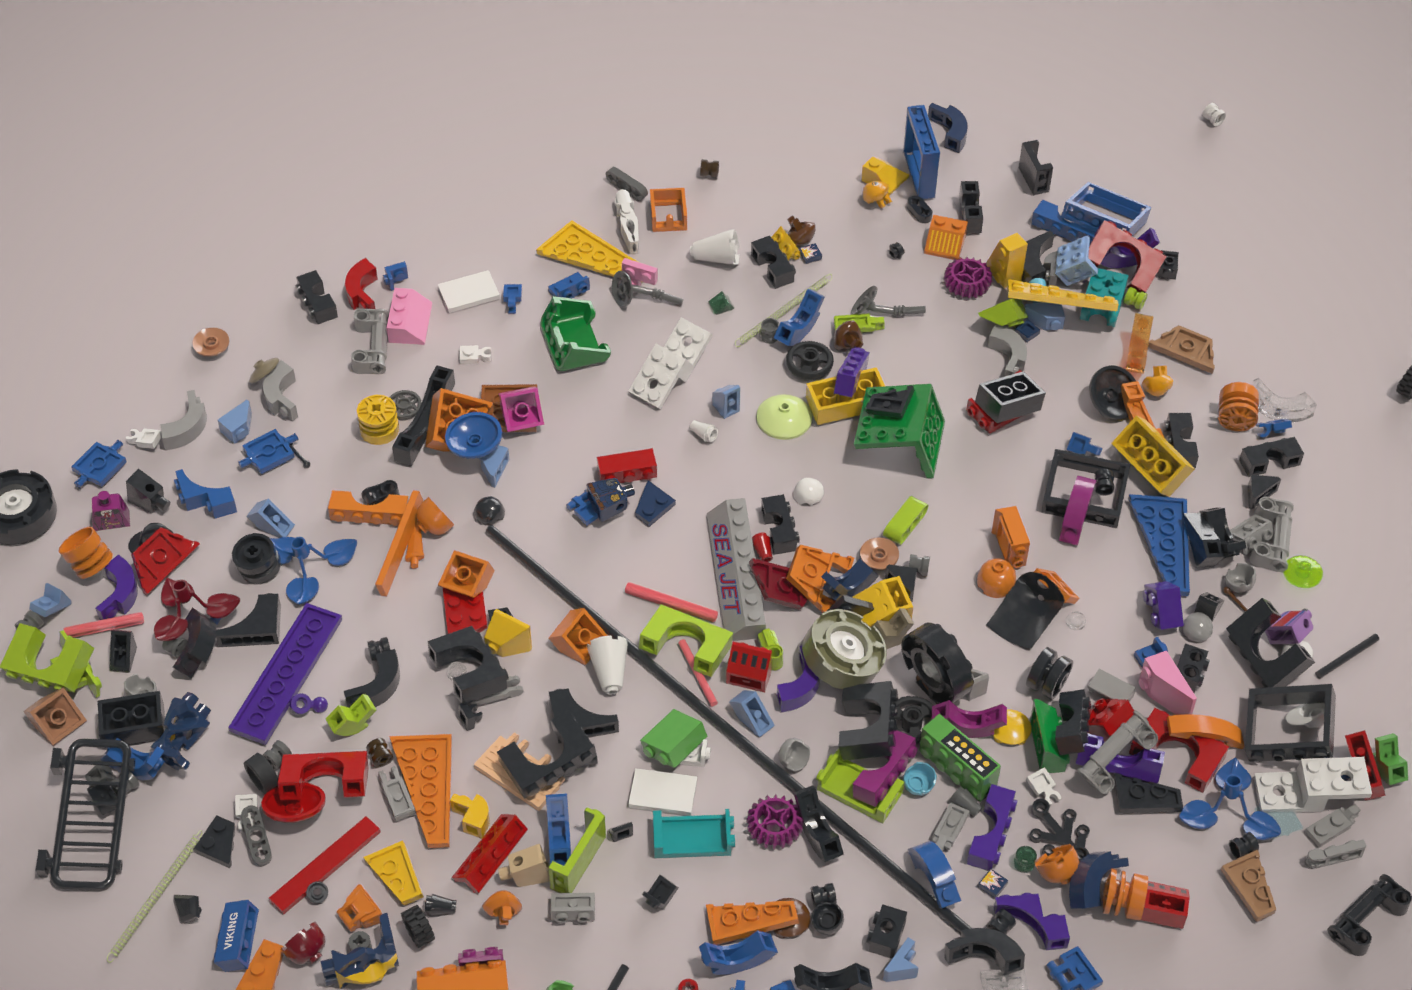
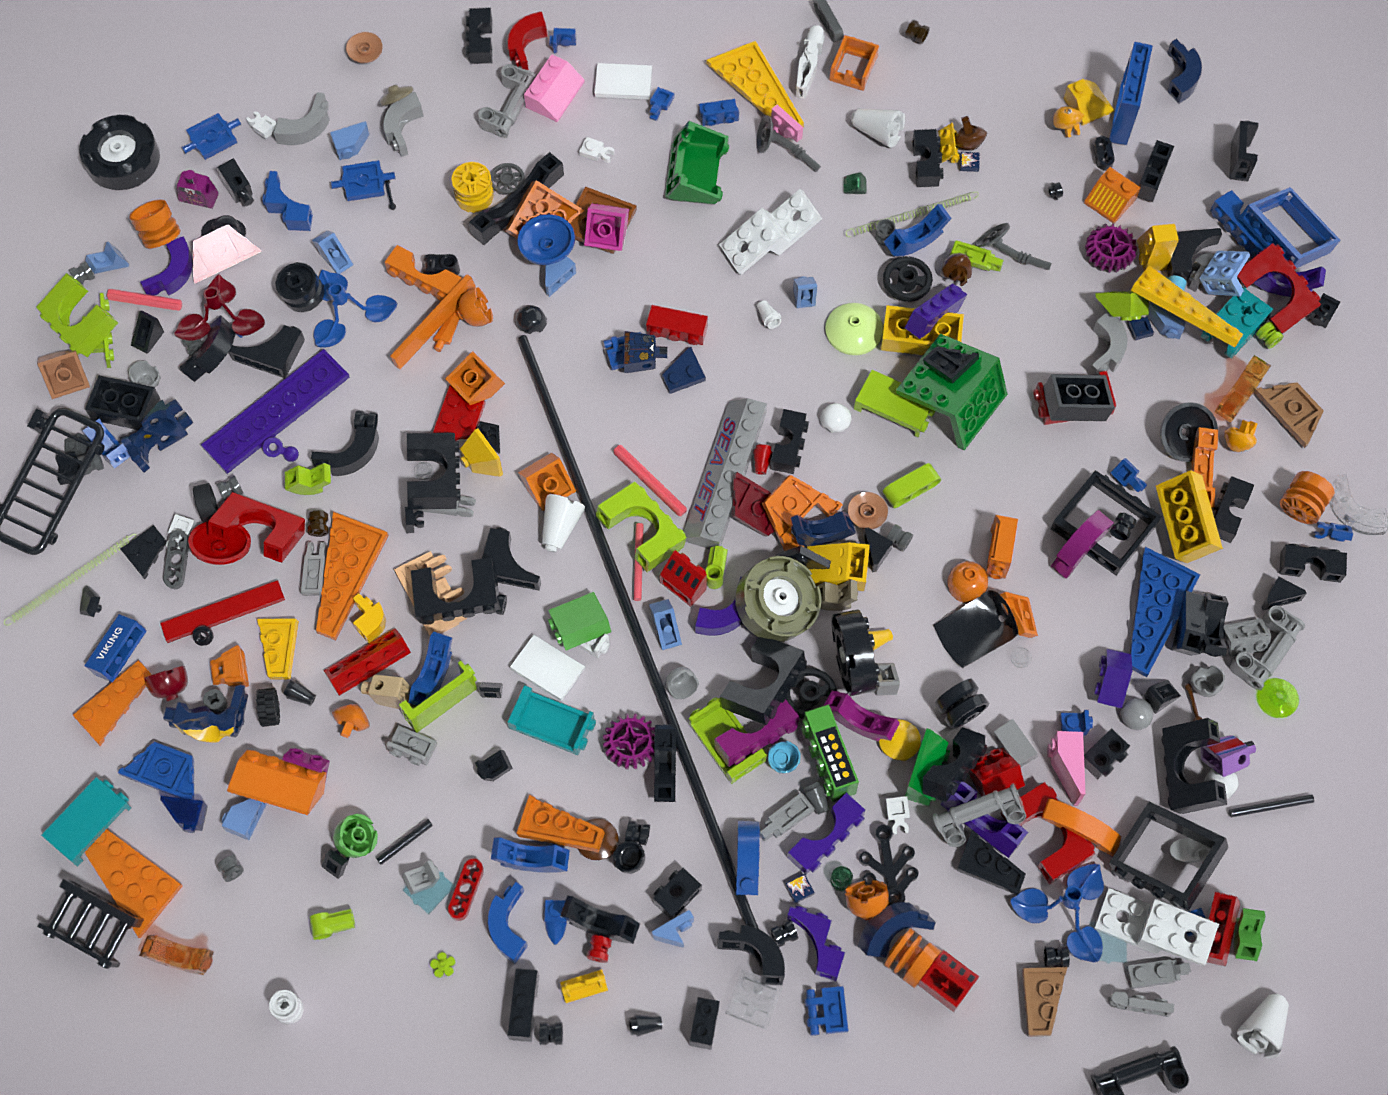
camera: 25 degrees right, 15 degrees up
(843, 458) = (881, 398): none -> lime panel

